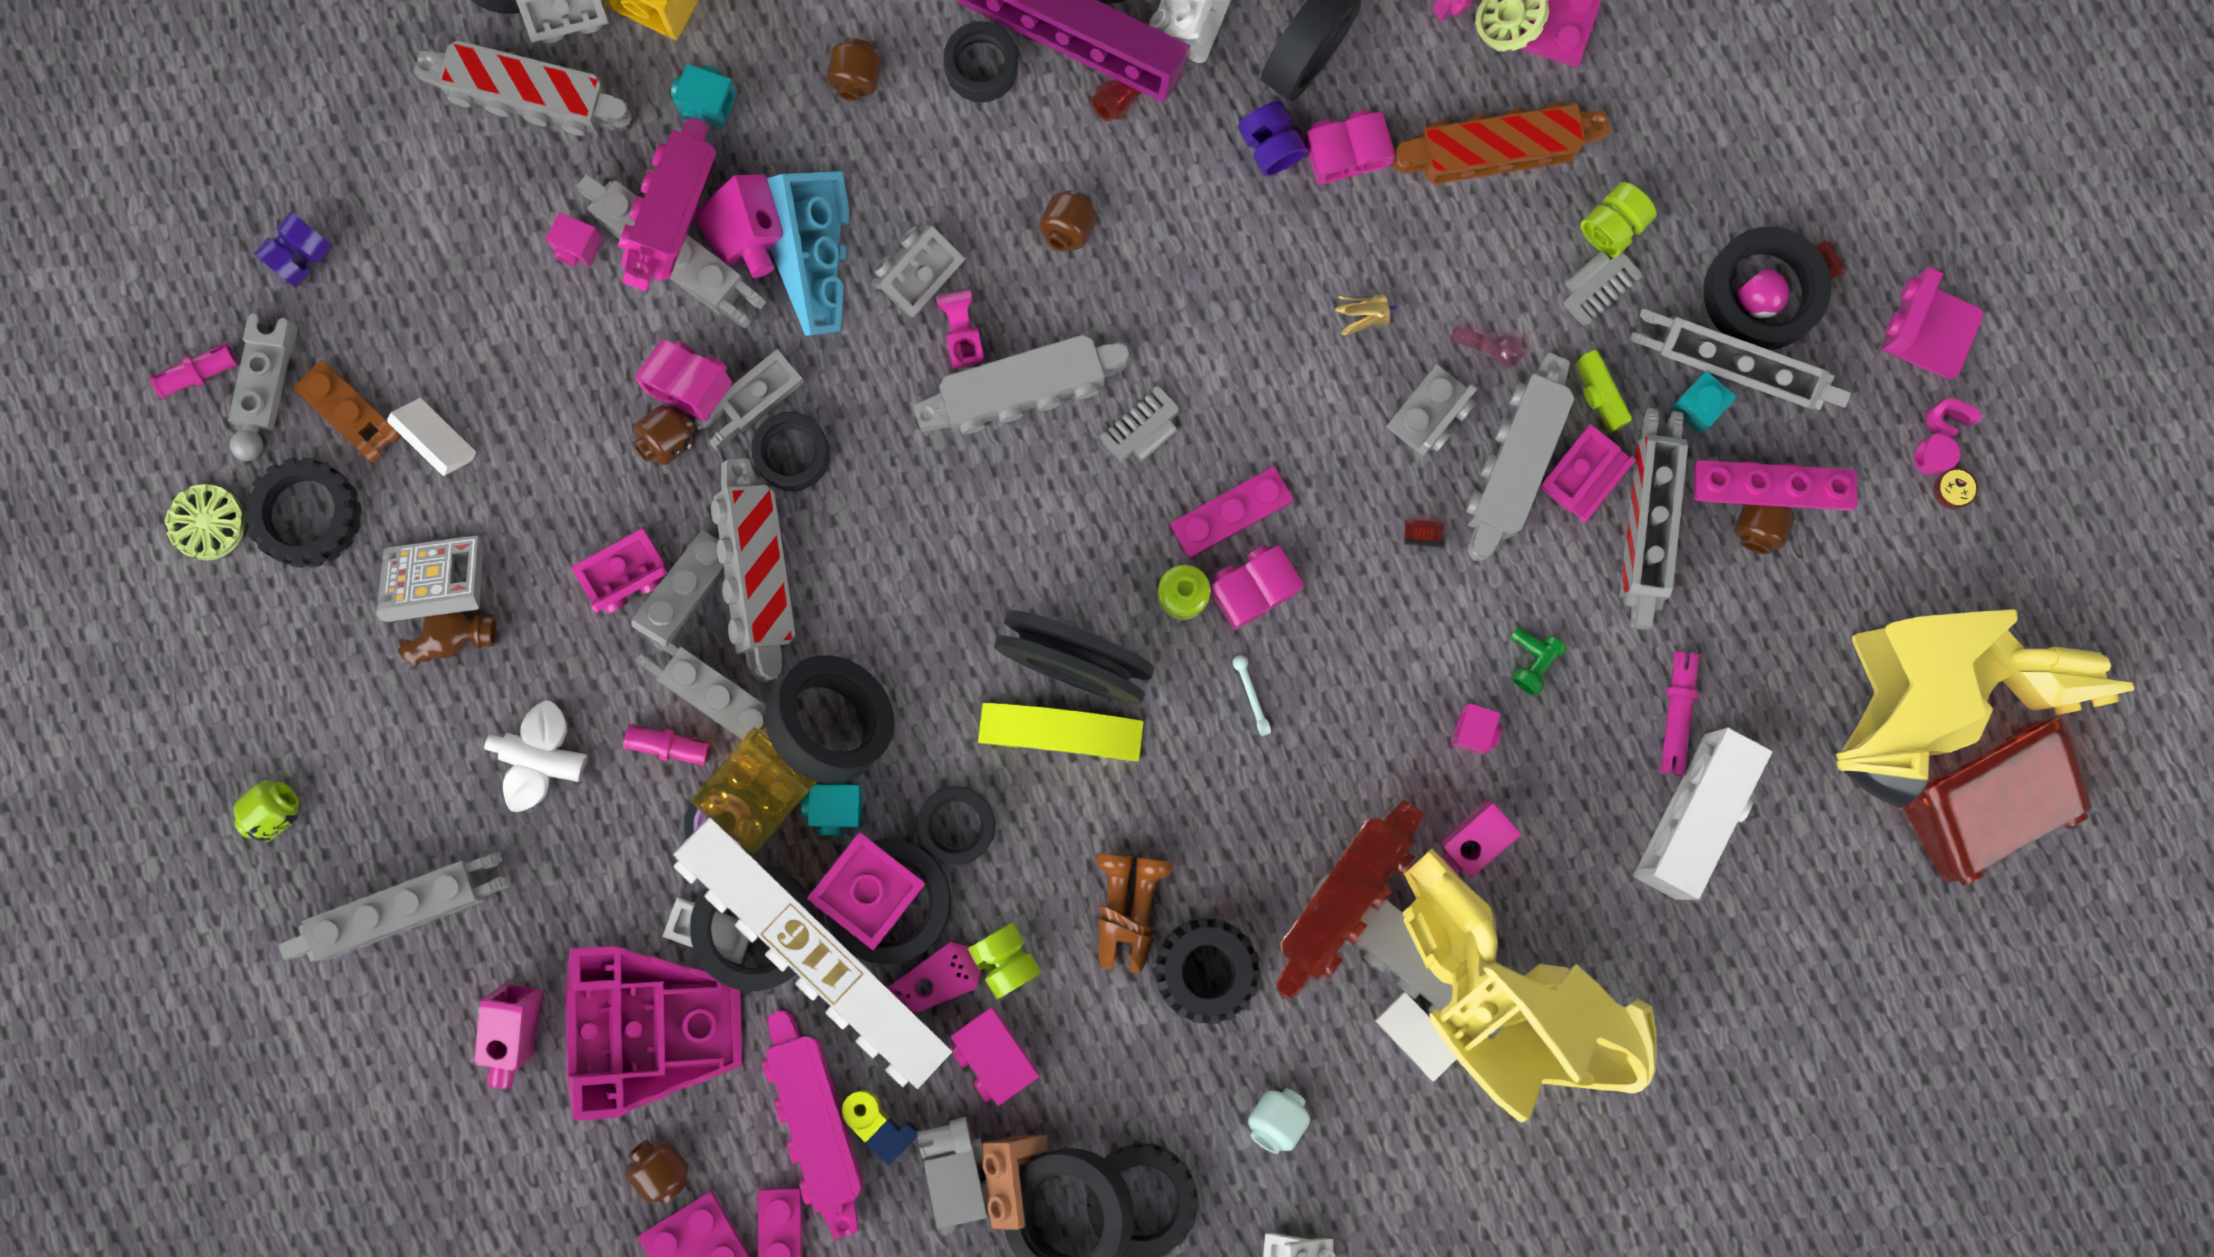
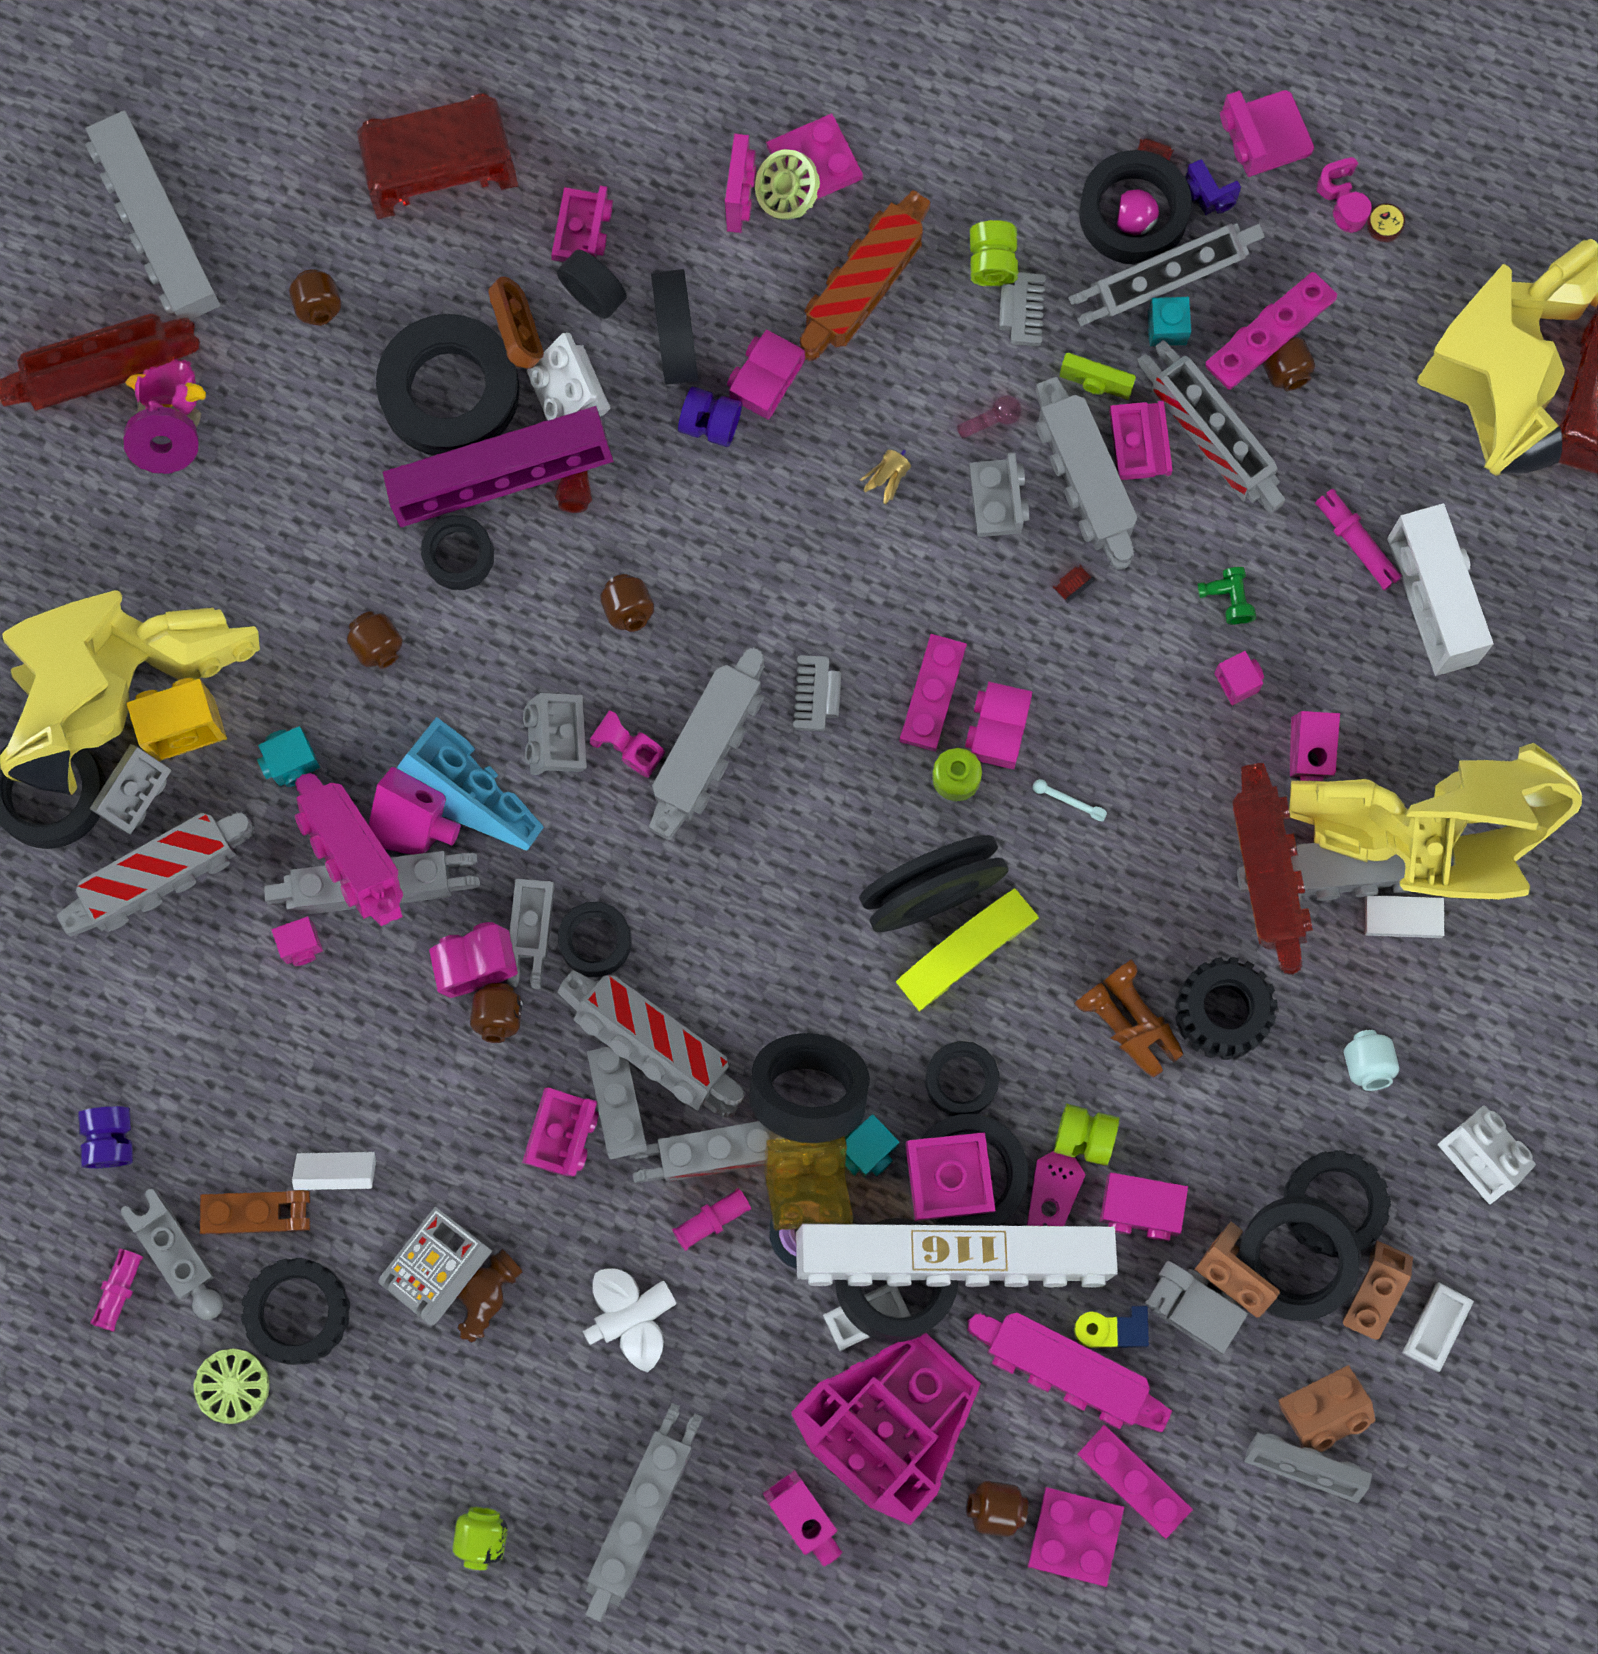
camera: 35 degrees left, 5 degrees down
(1835, 331) = (1207, 192): none -> dark purple bracket

